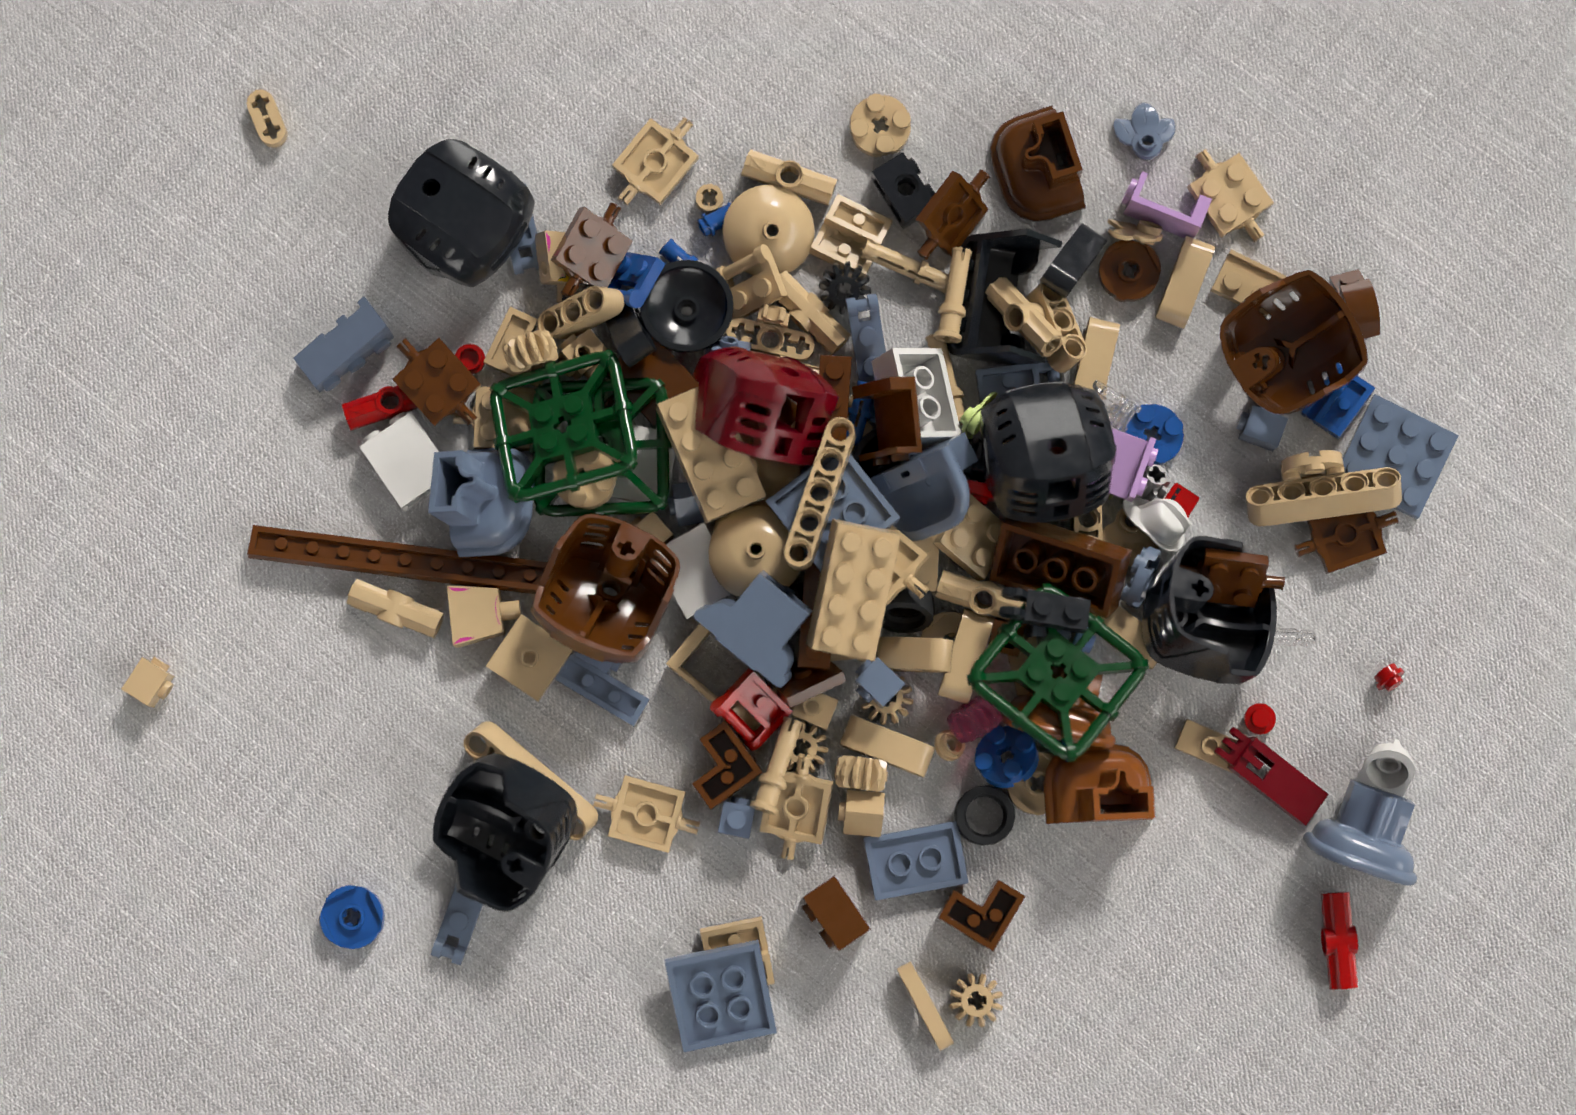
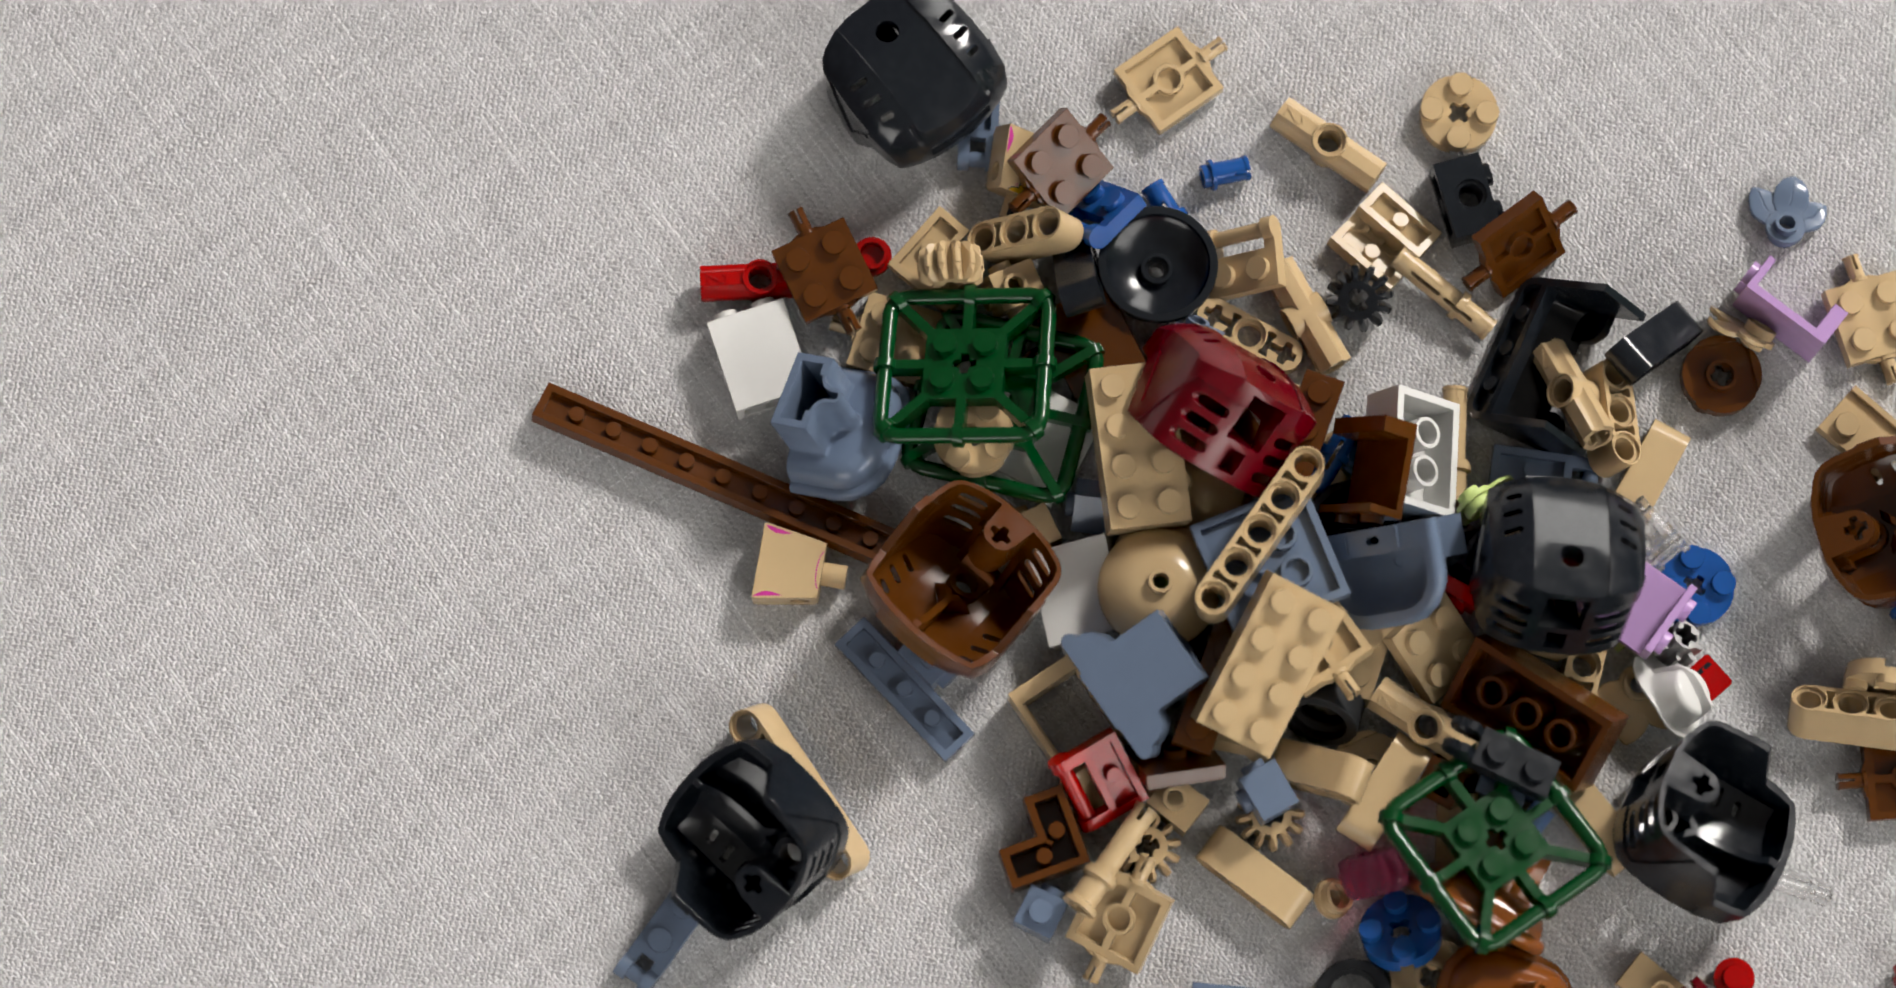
camera: 20 degrees right, 5 degrees down
(149, 681) = (367, 536): tan brick -> none
(335, 911) = (511, 882): blue plate -> none
(344, 347) = (724, 198): sand blue wedge -> none
(395, 608) = (693, 533): tan piece -> none
(529, 658) = (841, 639): tan plate -> none
(646, 814) = (930, 874): tan plate -> none
(700, 198) = (1226, 132): tan bush -> none
(763, 206) = (1283, 170): tan dish -> none
(773, 315) = (1262, 307): tan plate -> none
(861, 773) = (1212, 900): tan gear -> none
(862, 813) = (1200, 950): tan brick -> none
(865, 334) = (1369, 360): sand blue plate -> none
(952, 309) = (1486, 360): tan pin -> none
(1027, 166) = (1628, 216): reddish brown piece -> none
(1145, 568) = (1640, 747): sand blue plate -> none
(1185, 282) = (1786, 409): tan beam -> none
(1236, 576) = (1752, 788): reddish brown plate -> none
(1261, 427) = (1834, 615): sand blue brick -> none

